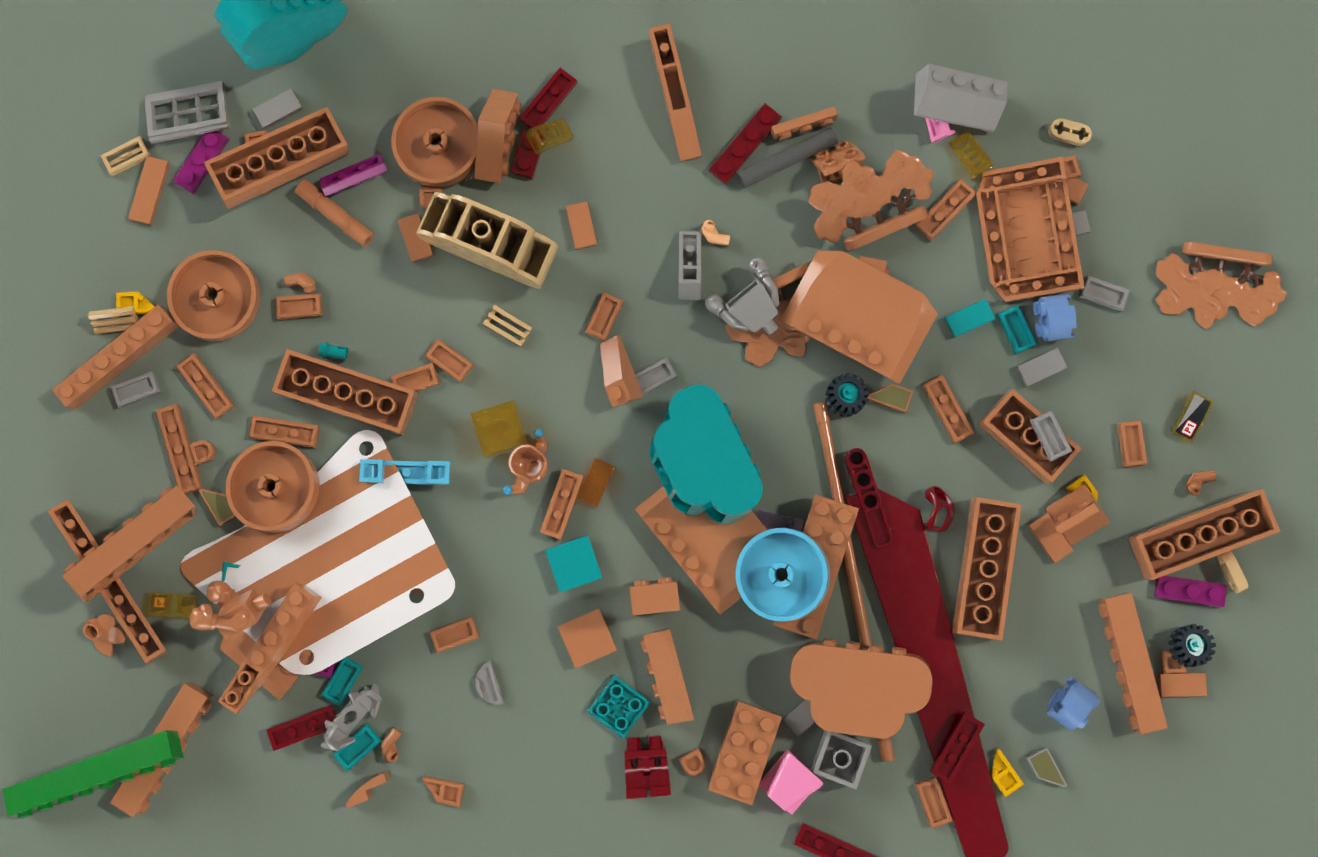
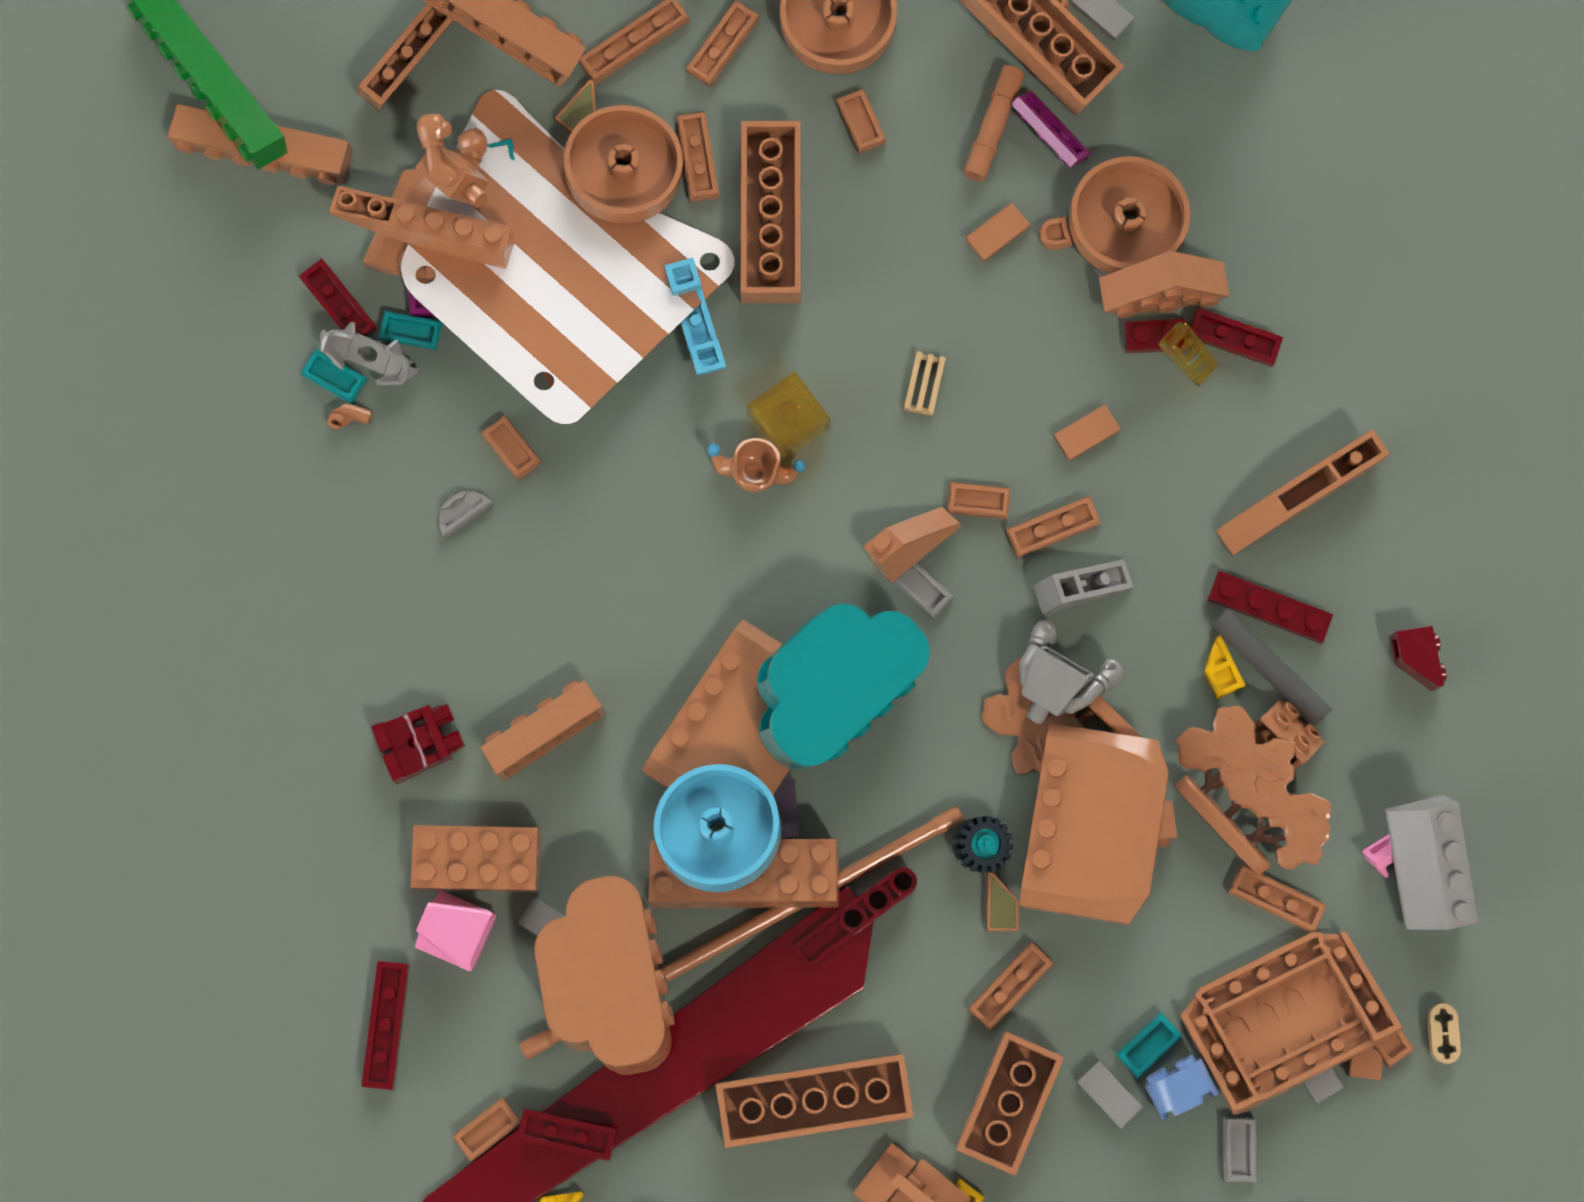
camera: 70 degrees right, 5 degrees down
(104, 633) = (379, 28): nougat plate -> none
(171, 604) = (440, 93): clear yellow slope -> none
(202, 452) = (639, 68): nougat tile -> none
(303, 280) = (895, 114): nougat arm -> none
(332, 351) = (817, 179): teal pin -> none
(364, 792) = (282, 402): nougat slope -> none
(417, 378) = (819, 294): nougat tile -> none
(445, 791) = (312, 501): nougat tile -> none
(449, 360) = (855, 326): nougat tile -> none
(487, 238) = (1024, 318): tan brick -> none
(561, 504) = (718, 525): nougat plate -> none
(573, 564) = (647, 565): teal tile -> none
(587, 638) = (558, 613): nougat tile -> none
(596, 482) = (761, 560): clear orange tile -> none
(619, 706) = (485, 682): teal tile -> none
(640, 271) = (1053, 527): none -> nougat tile
(655, 597) = (637, 673): nougat brick -> none
(693, 762) = (443, 800): nougat tile -> none
(712, 234) = (1133, 603): light nougat arm -> none
(778, 192) = (1222, 671): none -> yellow tile
(804, 124) = (1323, 674): nougat plate -> none
(812, 55) = (1417, 655): none -> dark red slope
(841, 758) = (506, 985): light grey brick -> none
(940, 499) = (886, 1008): dark red piece -> none
(969, 165) = (1344, 925): clear yellow slope -> none
(969, 318) = (1142, 976): teal tile -> none
(1051, 435) = (1018, 1127): light grey tile -> none

